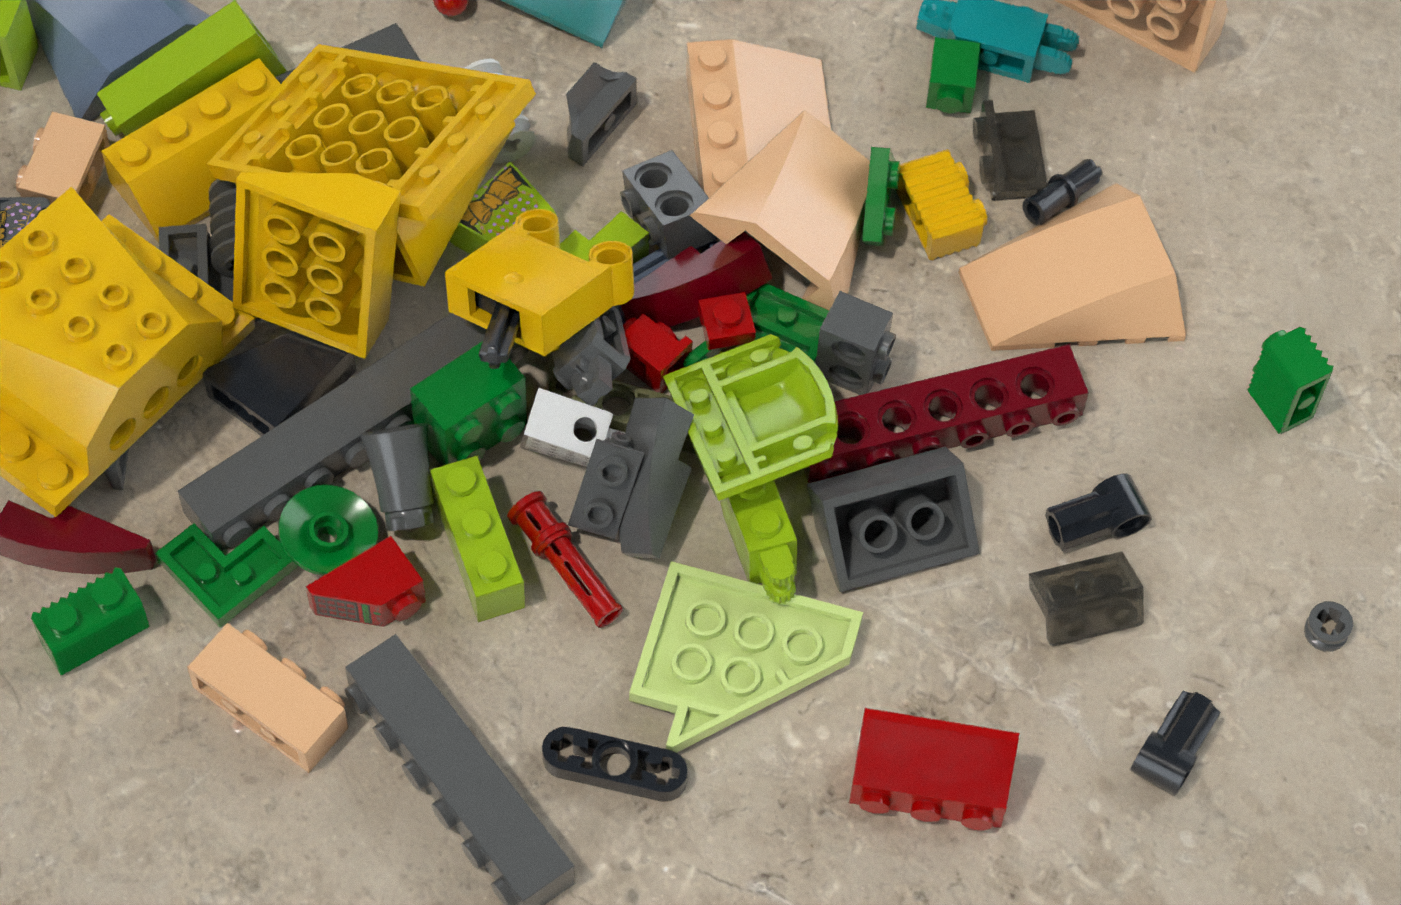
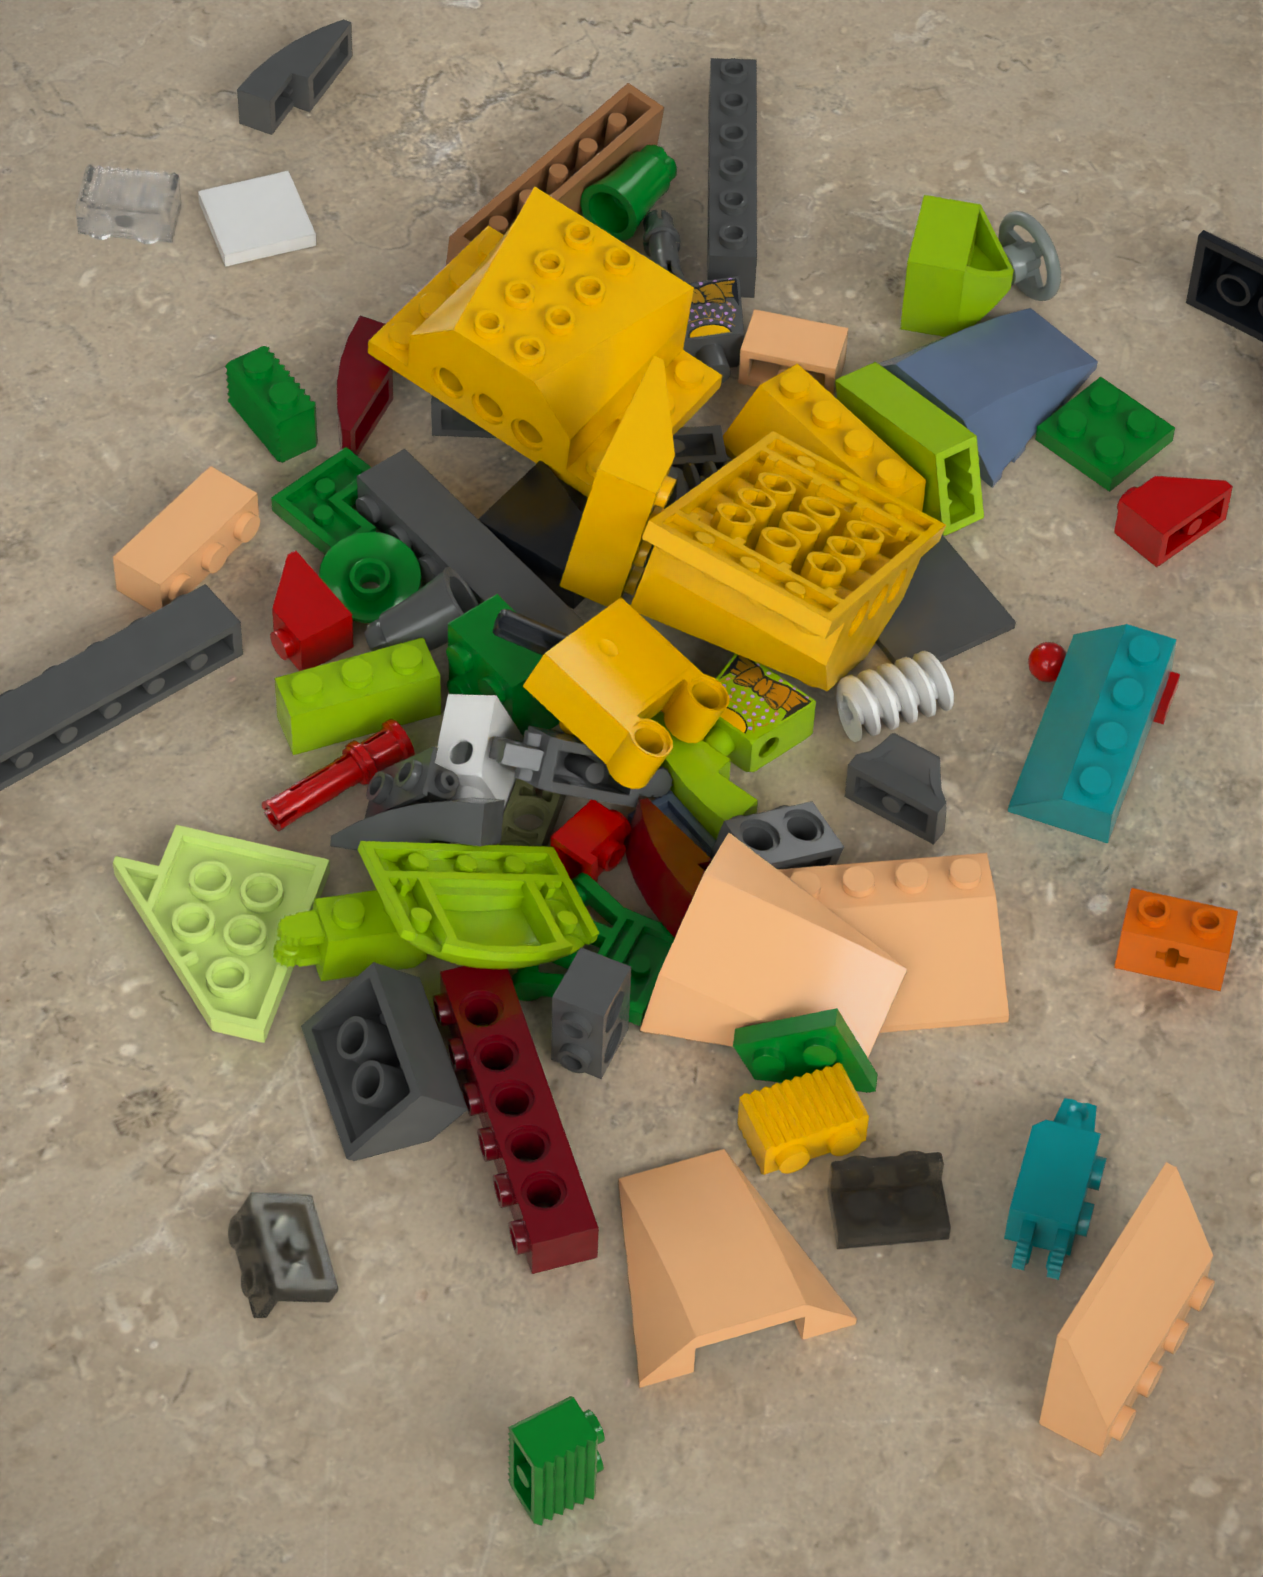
camera: 90 degrees right, 10 degrees down
(575, 768) = (102, 804): black beam -> none
(726, 320) = (622, 900): red plate -> none
(933, 769) = (64, 1085): red slope -> none
(952, 75) = (987, 1138): green brick -> none
(1061, 191) = (833, 1252): black axle -> none
(1110, 508) = (391, 1278): black piece -> none
(1172, 751) = (82, 1323): black piece -> none
(1343, 626) = (237, 1492): dark grey bush -> none

